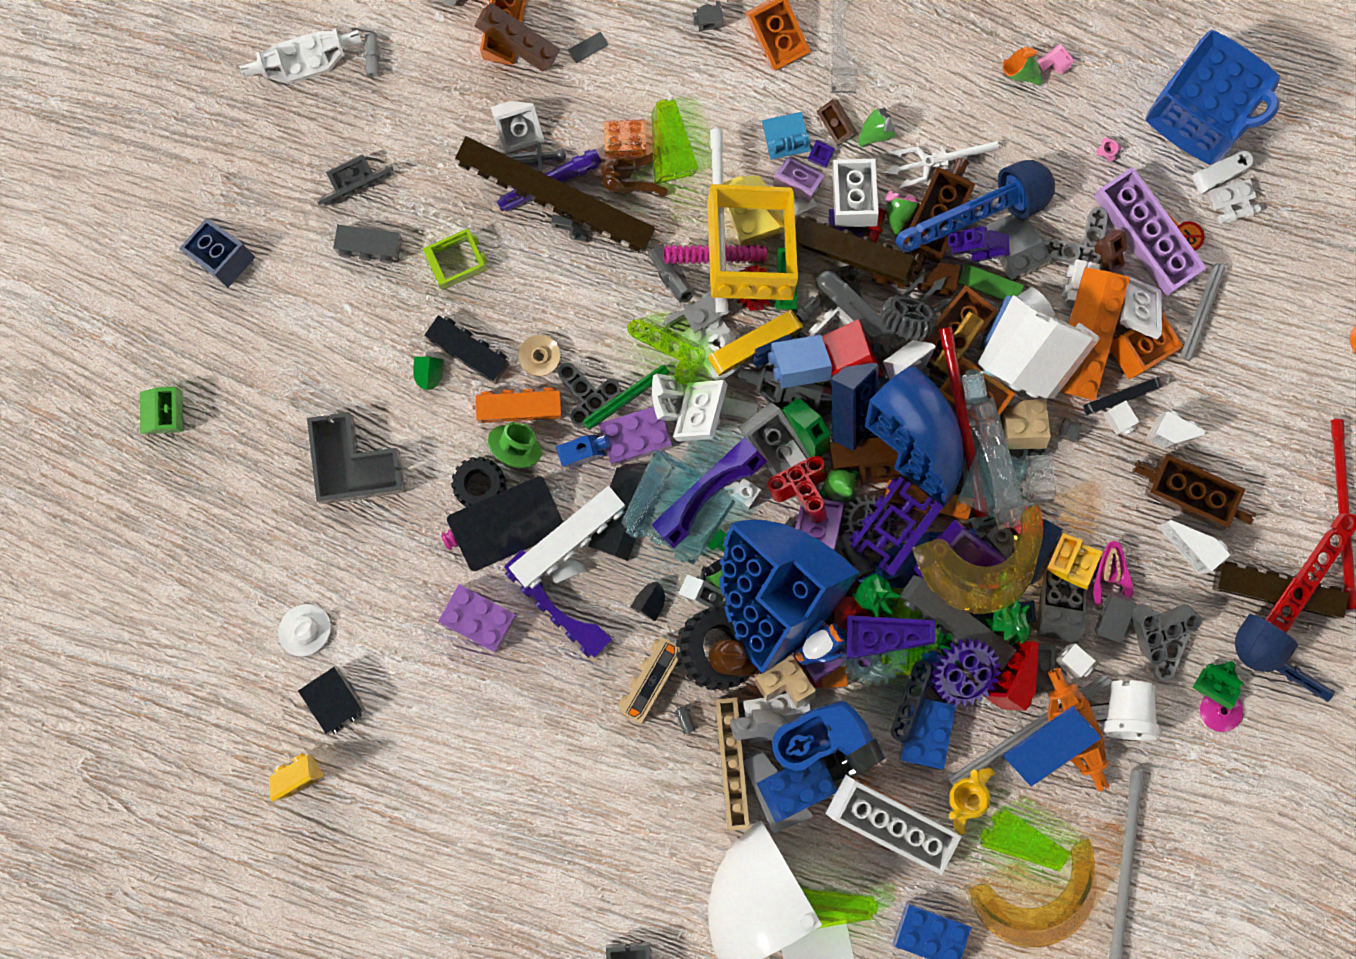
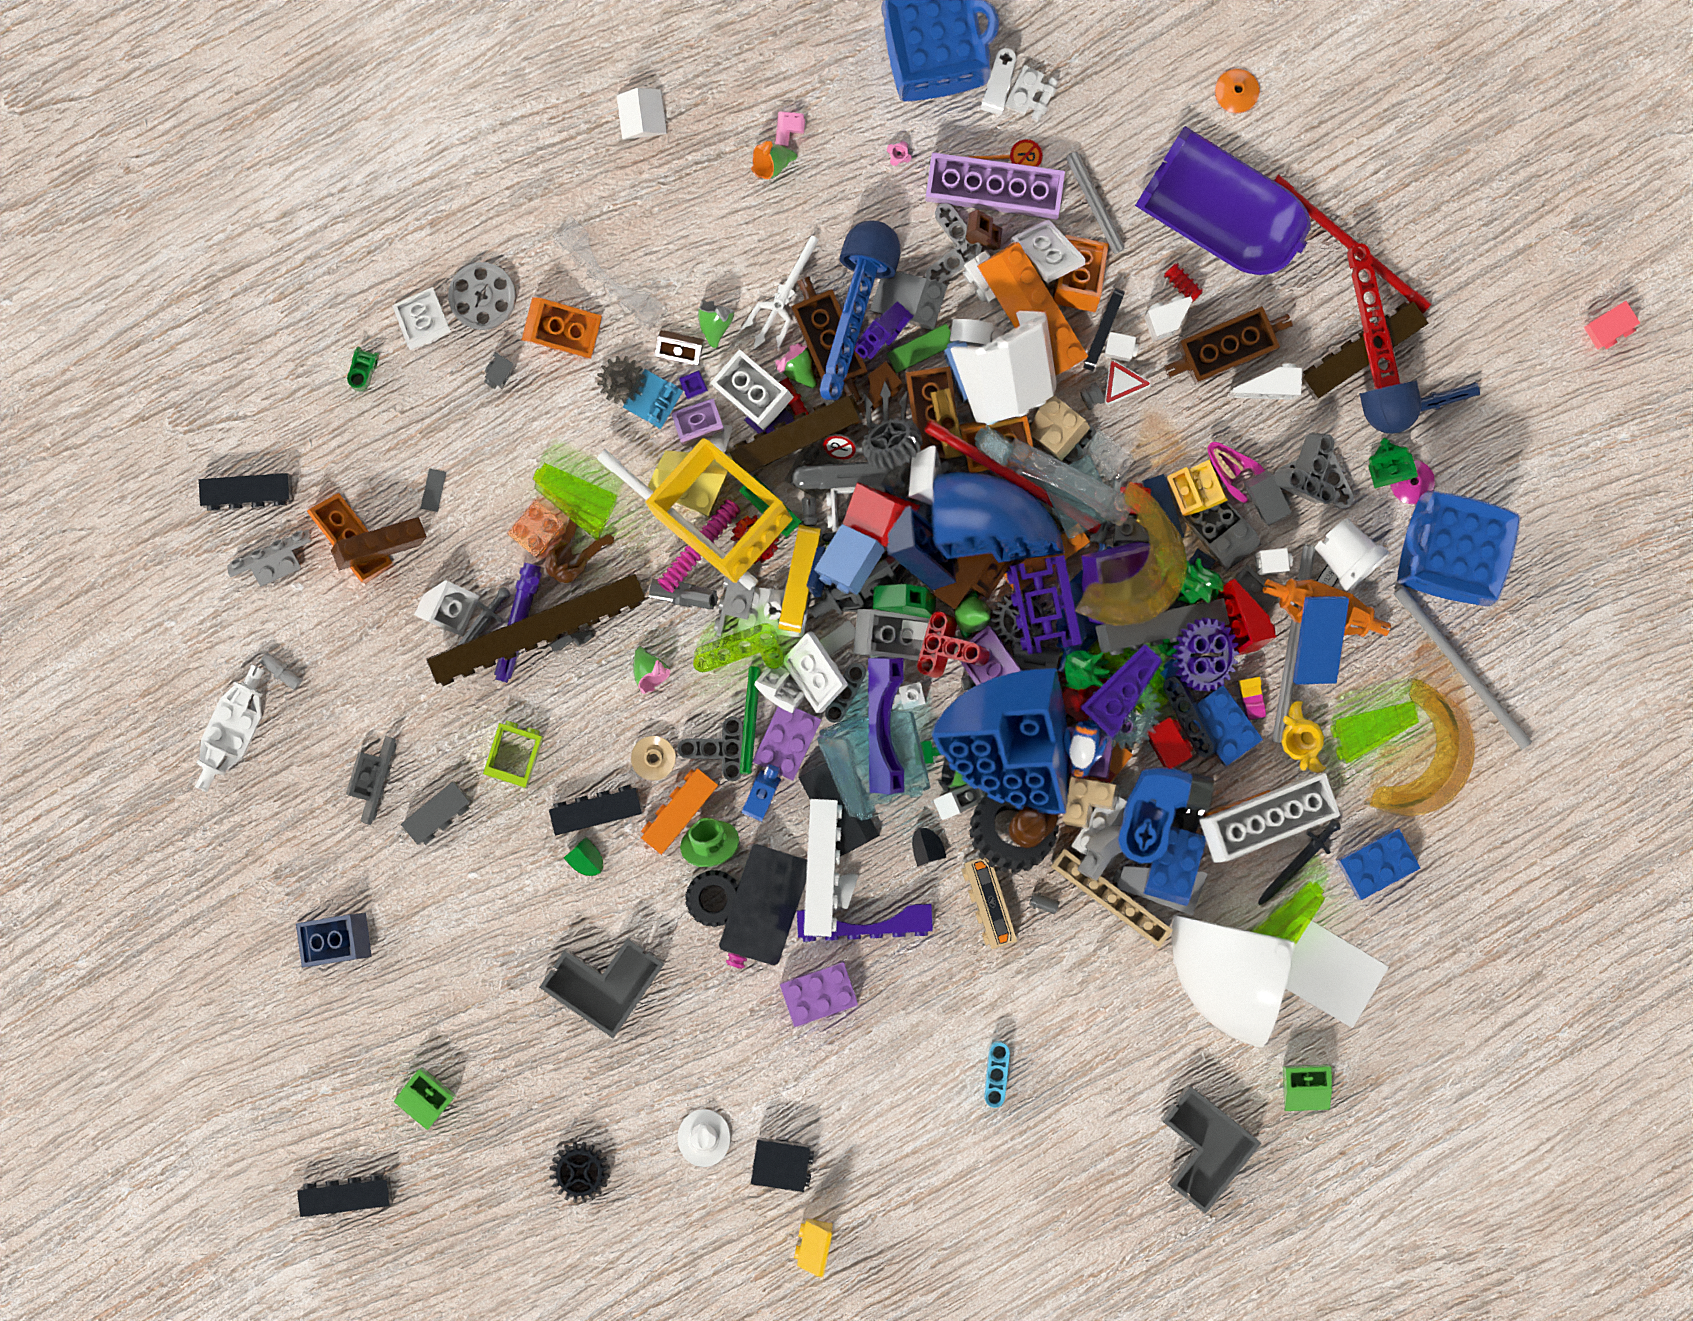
camera: 45 degrees left, 5 degrees up
(43, 418) = (344, 1196): none -> black brick
(203, 572) = (587, 1179): none -> black gear
(525, 803) = (996, 1085): none -> medium azure beam
(597, 298) = (648, 670): none -> hat
(697, 453) = (843, 704): none -> dark grey beam
(770, 103) = (627, 372): none -> clear smoke gear
(872, 288) = (840, 446): none -> piece
(879, 704) = (1169, 744): none -> red brick
(882, 876) = (1301, 859): none -> black sword
(965, 735) = (1252, 698): none -> leg
(1098, 443) = (1123, 383): none -> piece
(1206, 420) = (1183, 282): none -> red piece
(1211, 785) = (1458, 548): none -> blue piece
(1288, 401) = (1226, 206): none -> dark purple panel

